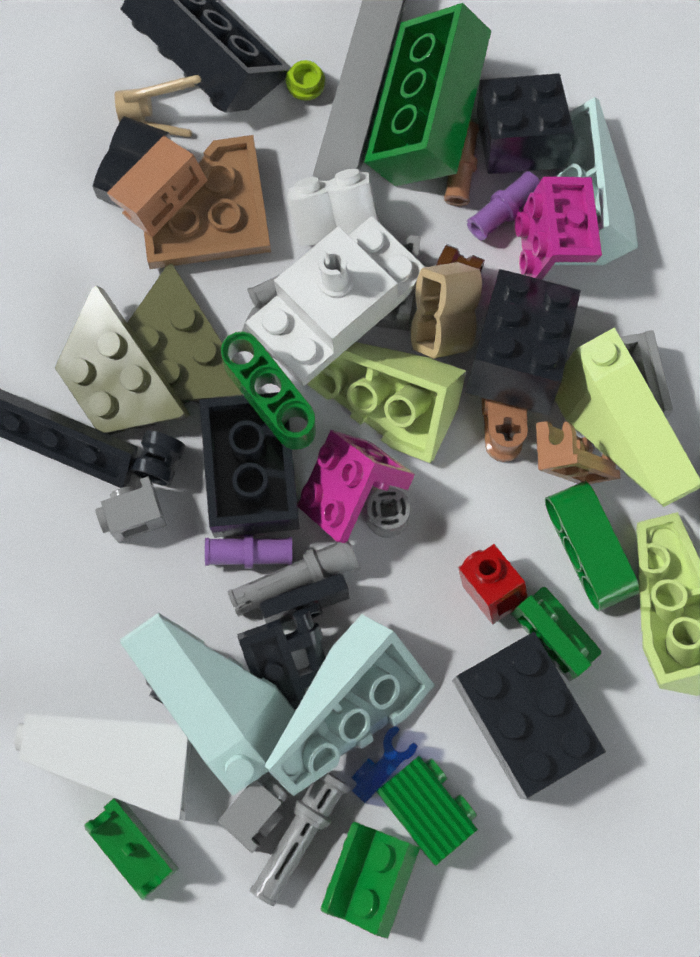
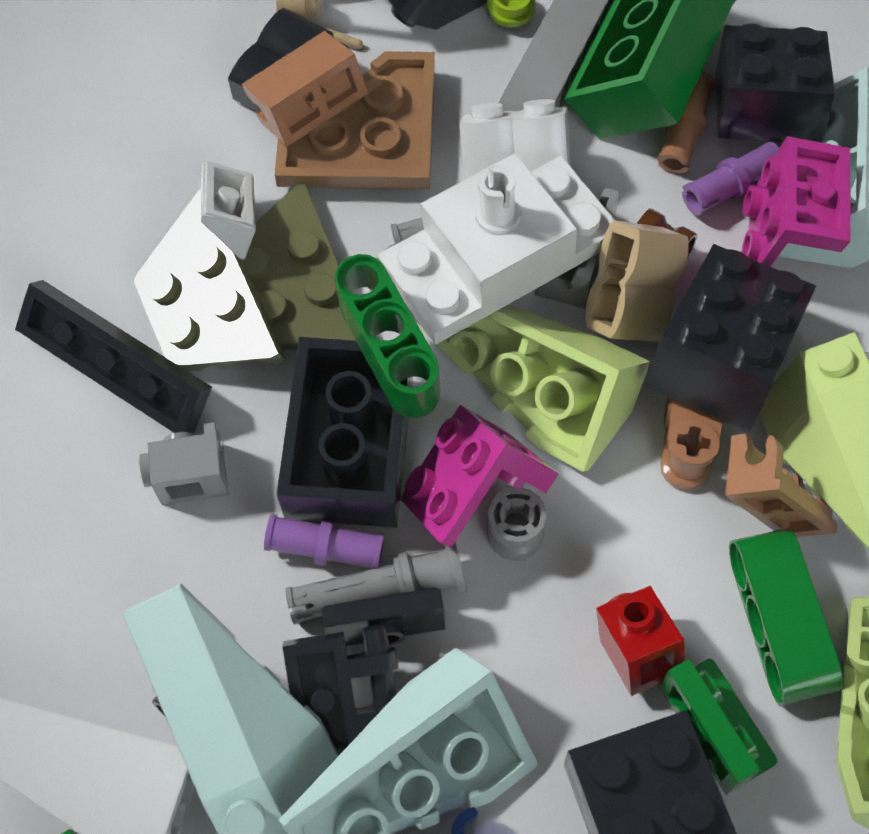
camera: 15 degrees right, 10 degrees down
(119, 297) = (228, 206): none -> white slope
(158, 457) = (235, 405): black wheel -> none

